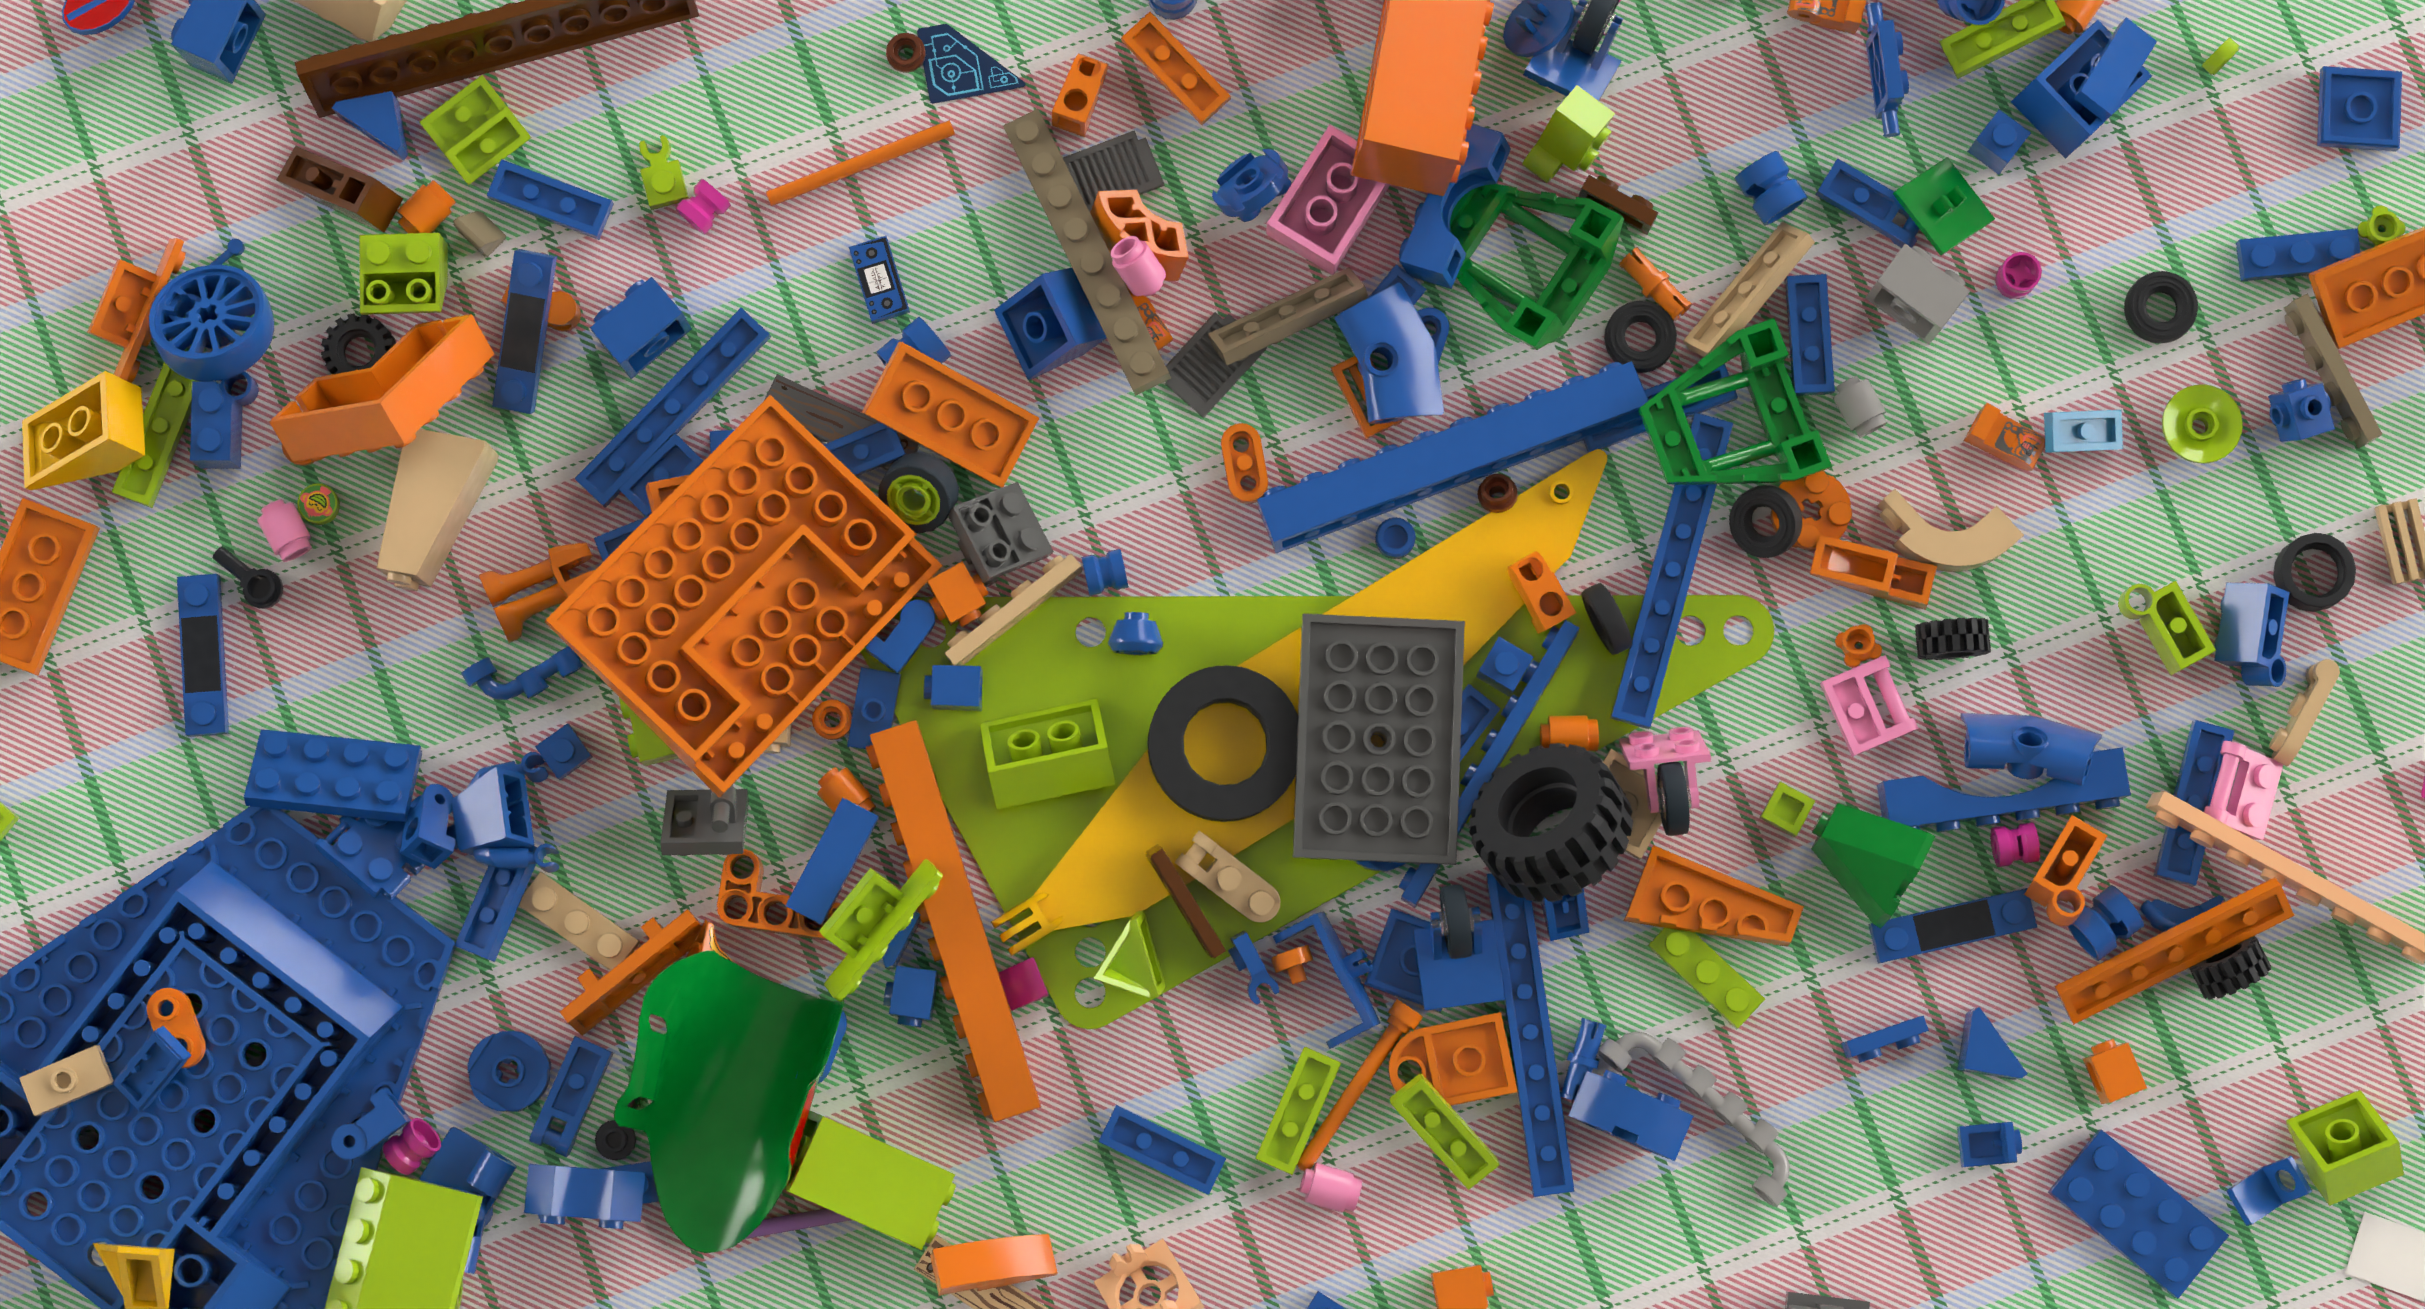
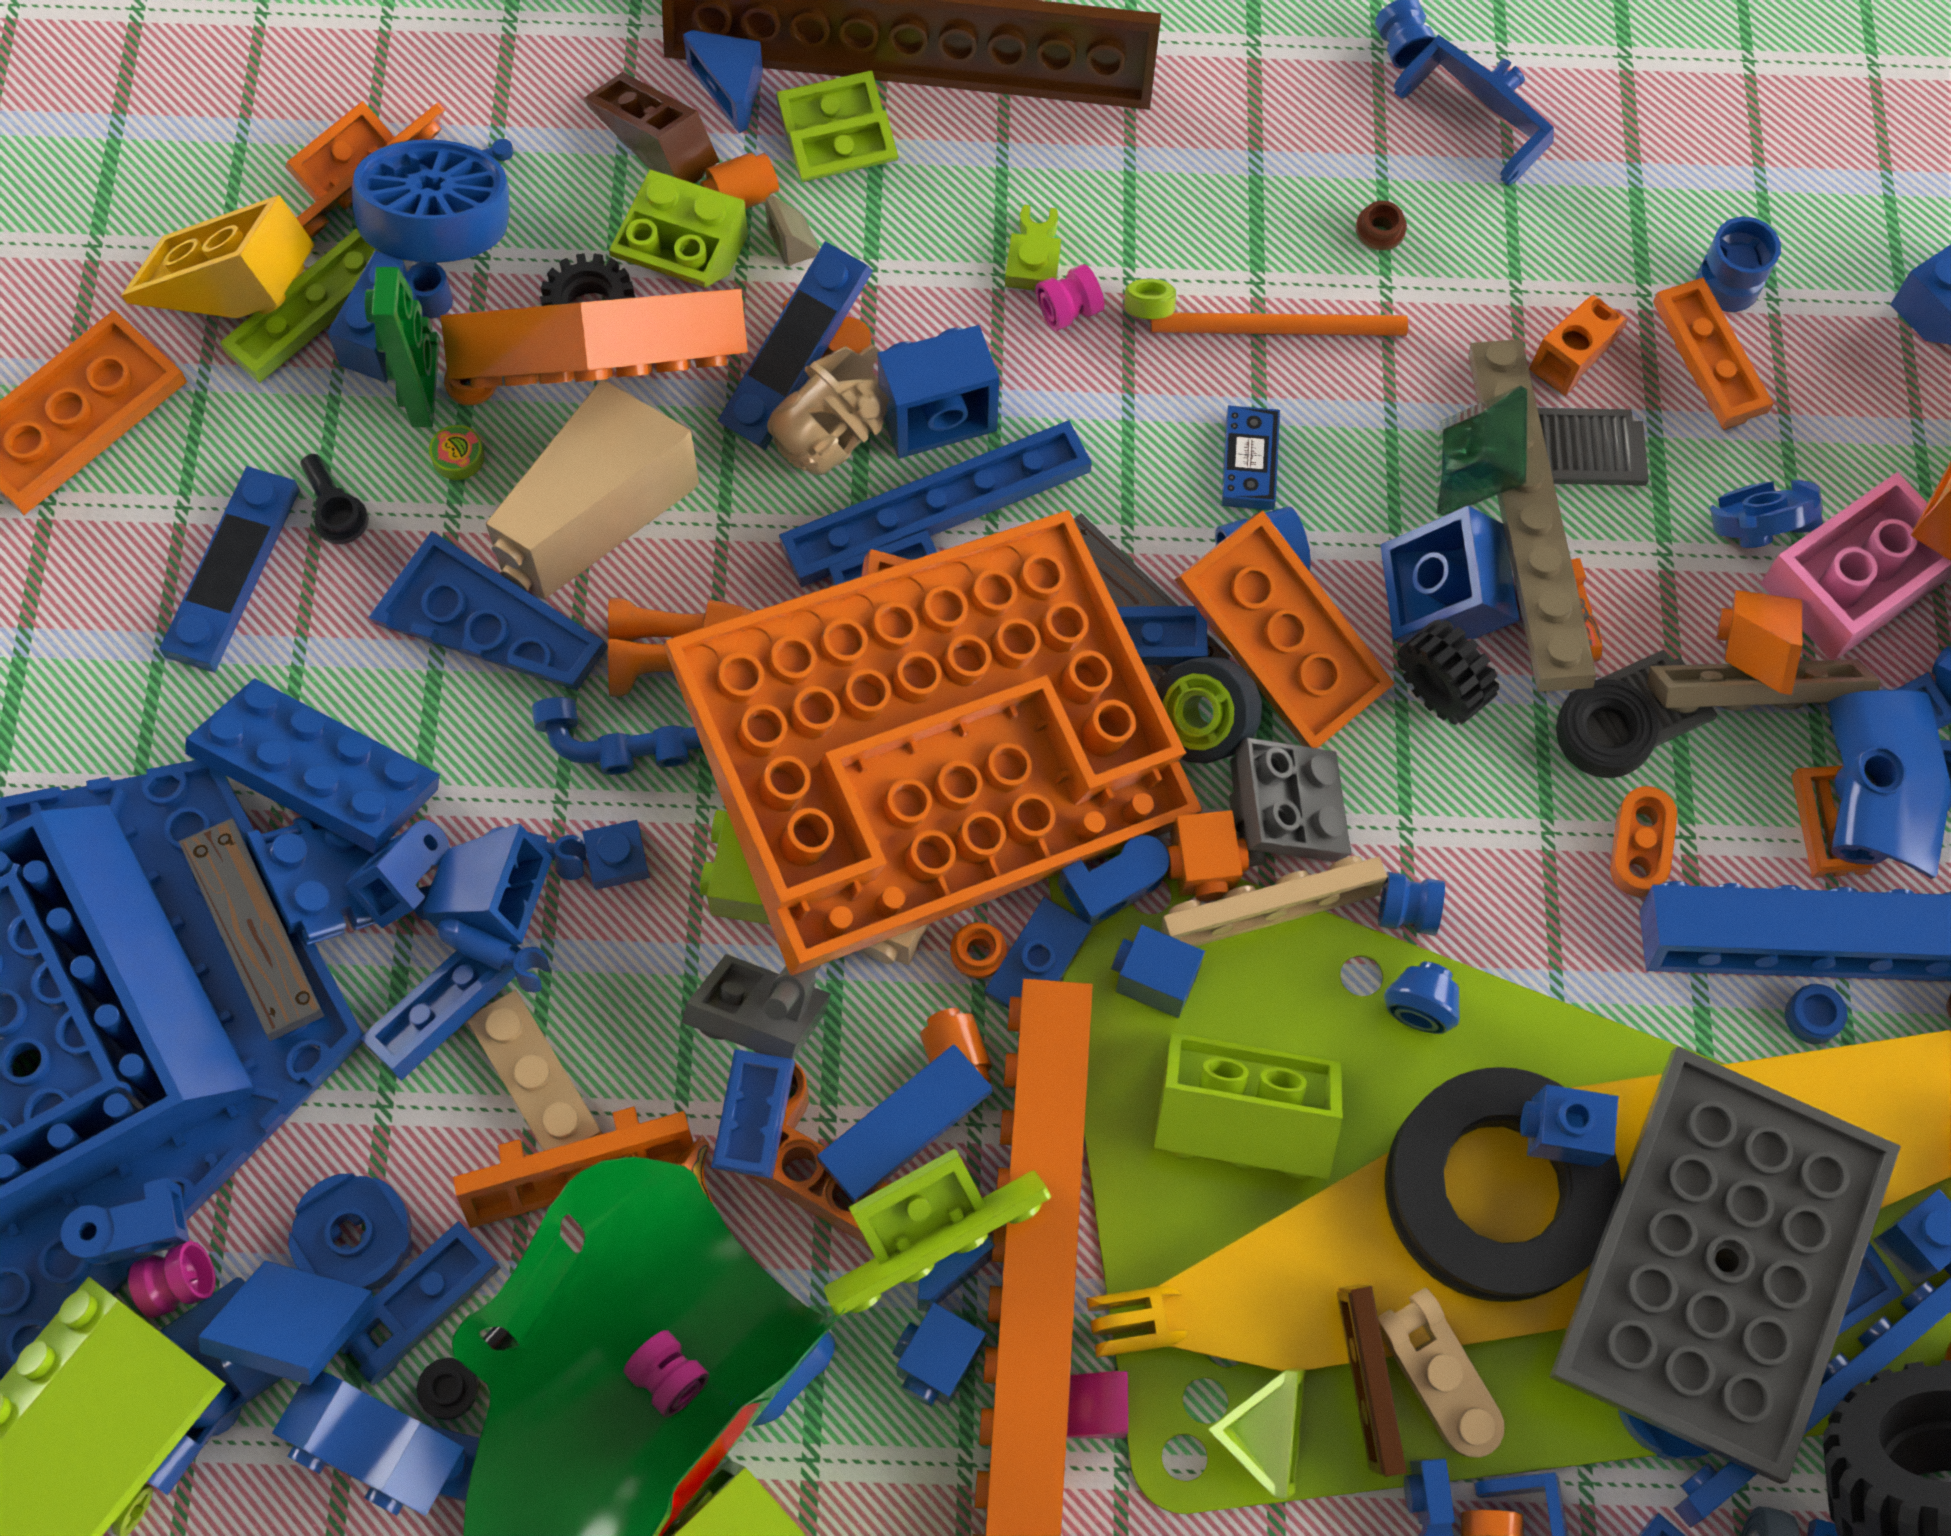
camera: 20 degrees right, 15 degrees down
(255, 455) = (407, 342): none -> green wing
(284, 530) = (401, 462): bright pink brick -> none
(349, 905) = (251, 929): none -> dark grey tile
(388, 618) = (478, 612): none -> blue wing
(499, 1143) = (286, 1322): none -> blue tile
(550, 199) = (891, 227): blue plate -> none
(572, 372) = (830, 411): none -> tan helmet
(733, 896) = (753, 1114): none -> blue plate
(748, 1076) = (666, 1373): none -> dark pink wheel
(761, 183) = (1150, 299): none -> lime tile
(960, 68) = (1438, 270): dark blue sticker -> none
(1037, 218) = (1482, 451): none -> clear green slope
(1071, 398) = (1448, 672): none -> black tyre
(1124, 215) = (1605, 520): orange brick -> none
(1138, 266) = (1596, 540): bright pink brick -> none
(1194, 415) = (1600, 759): none -> black tyre
(1250, 695) = (1570, 1125): none -> blue brick
(1277, 284) = (1763, 637): none -> orange slope

